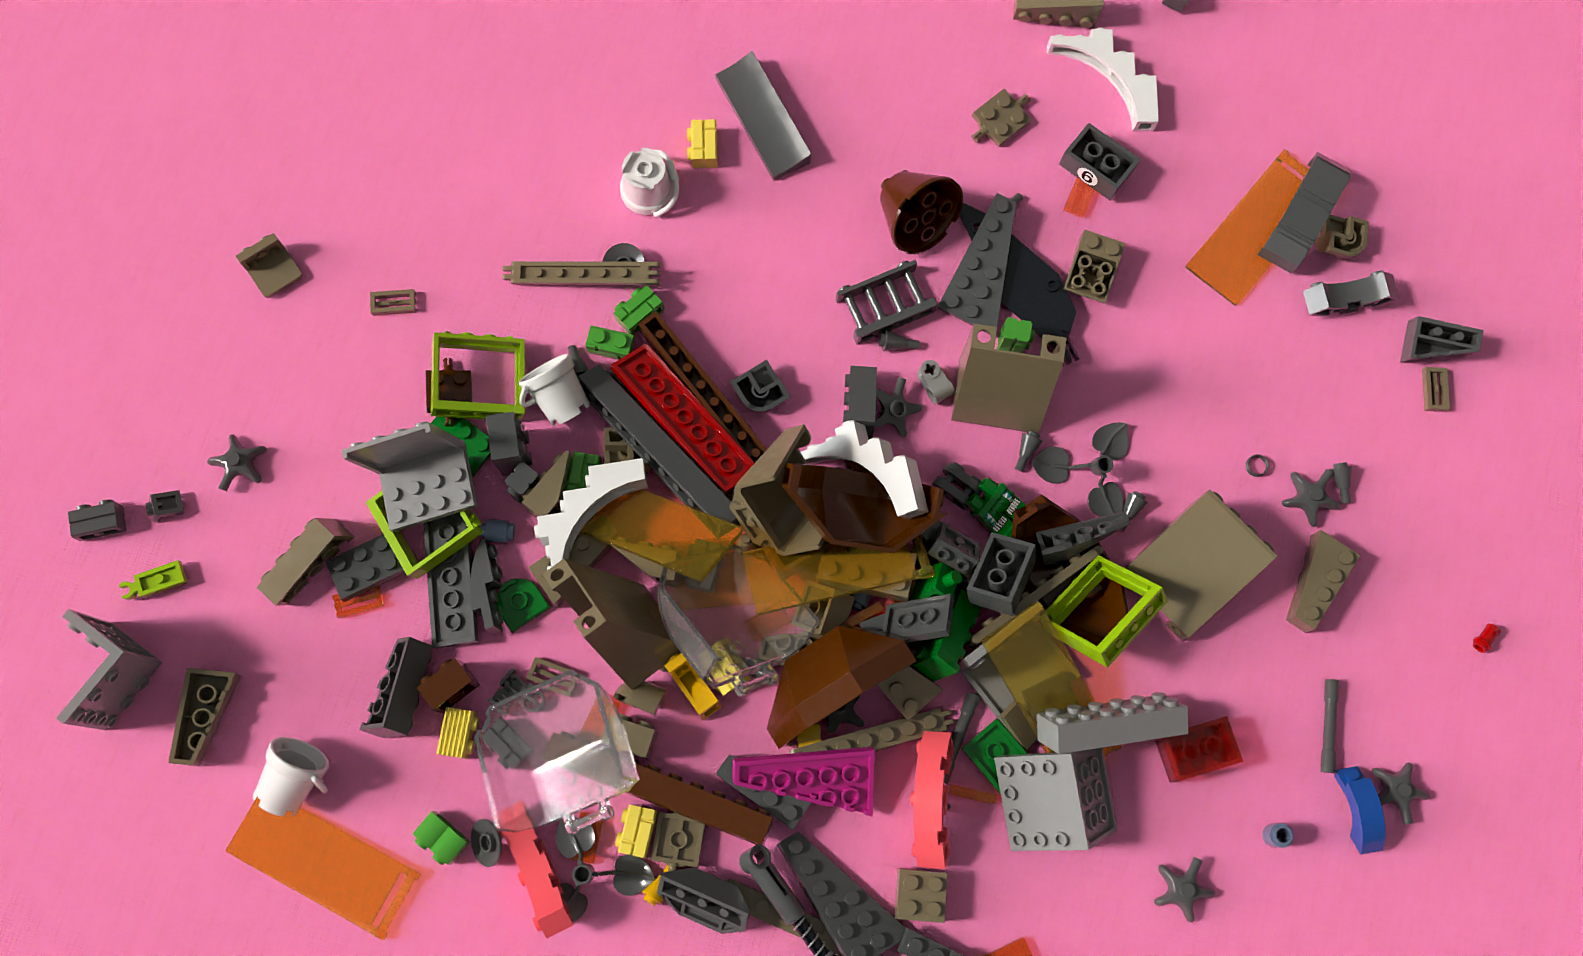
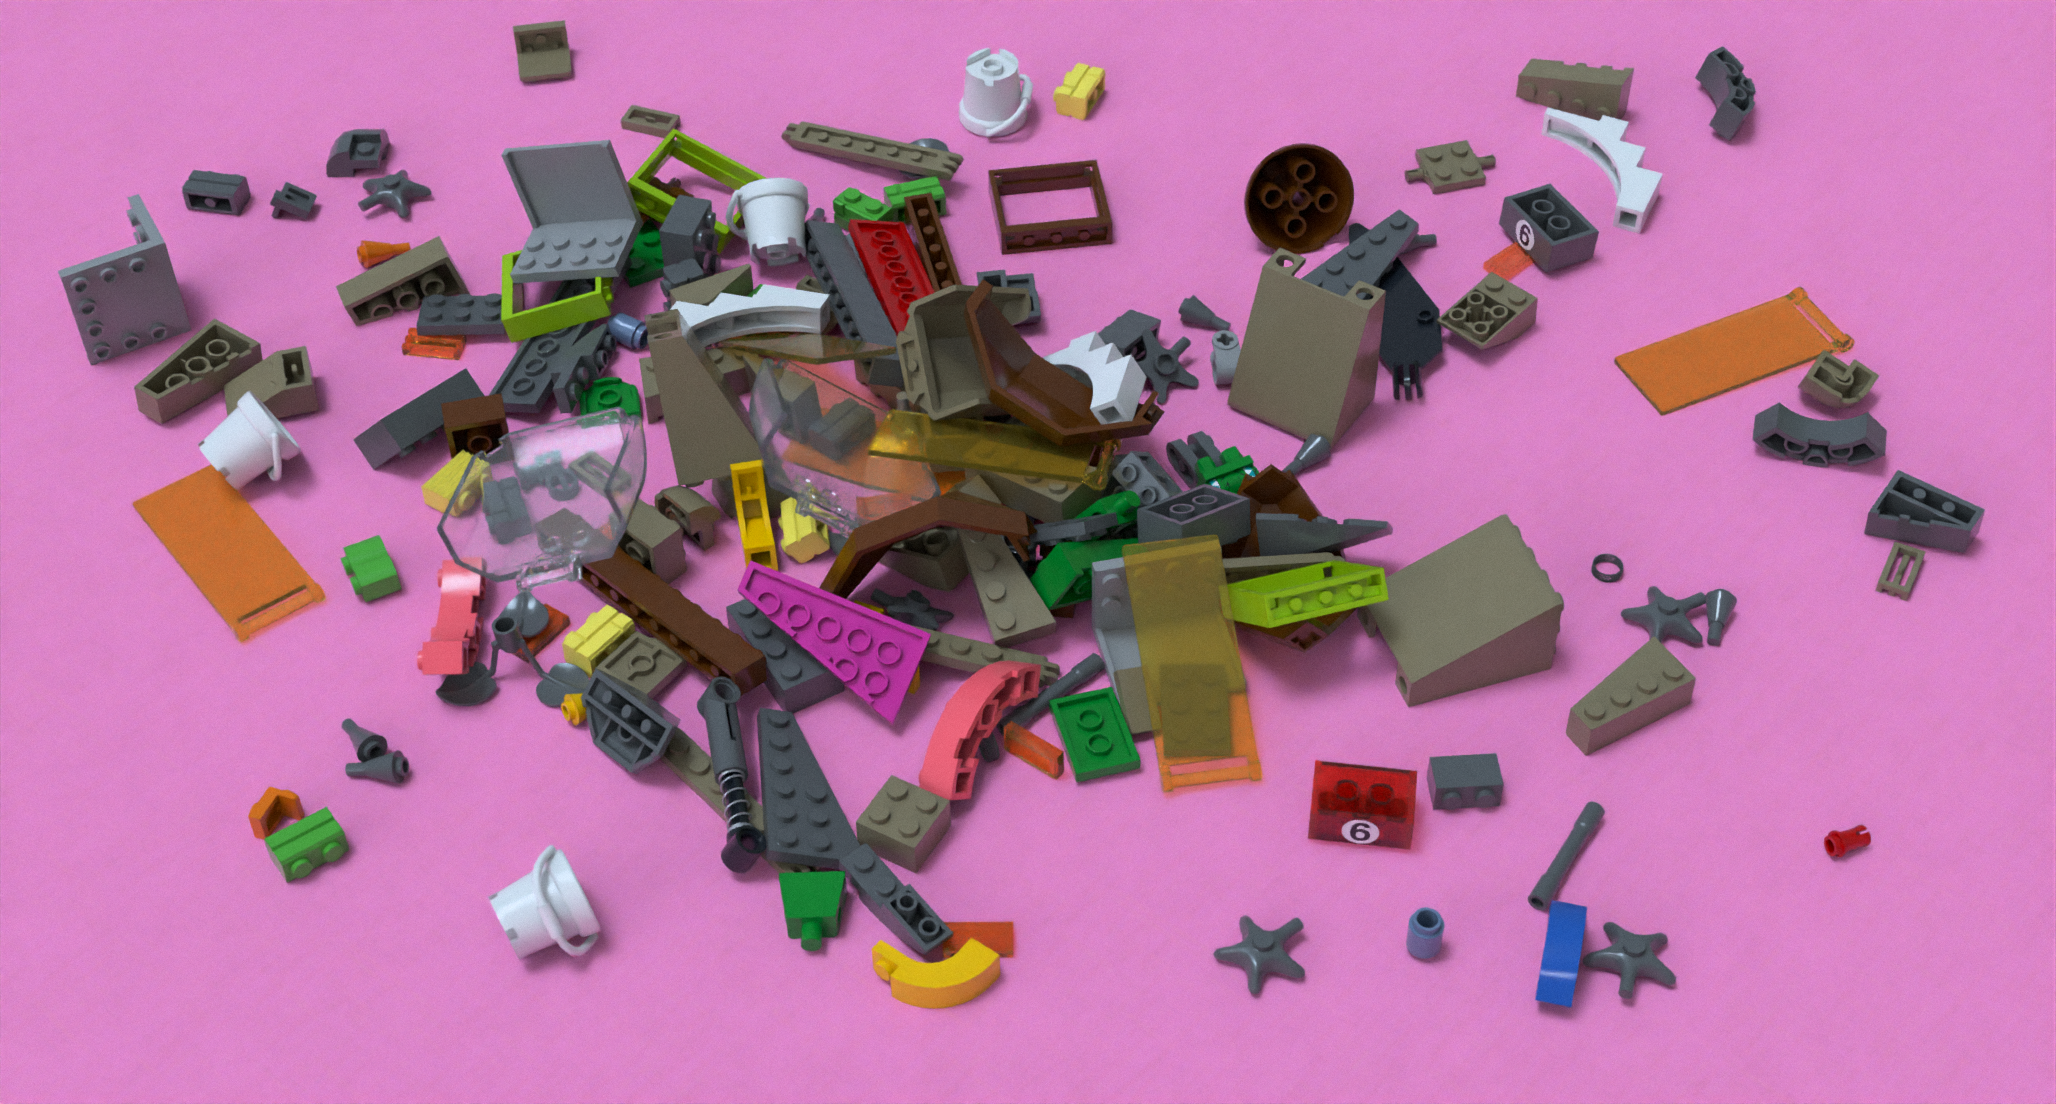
camera: 30 degrees right, 30 degrees down
(155, 580) = (236, 257): lime plate -> none
(183, 431) = (357, 150): none -> dark grey brick
(259, 531) = (376, 252): none -> orange cone
(266, 705) = (280, 381): none -> dark tan slope
(486, 842) = (420, 586): dark grey dish -> none
(756, 305) = (1051, 234): none -> reddish brown window
(763, 117) = (1164, 92): dark grey arch -> none
(884, 322) = (1214, 294): dark grey fence -> none
(1056, 800) = (1148, 765): light grey bracket -> none
(1112, 723) = (1252, 711): light grey brick -> none
(1113, 444) = (1422, 485): dark grey plant -> none
(1133, 505) = (1416, 547): dark grey cone -> none
(1248, 696) = (1464, 781): none -> dark grey brick
(1306, 213) = (1782, 329): dark grey windscreen -> none

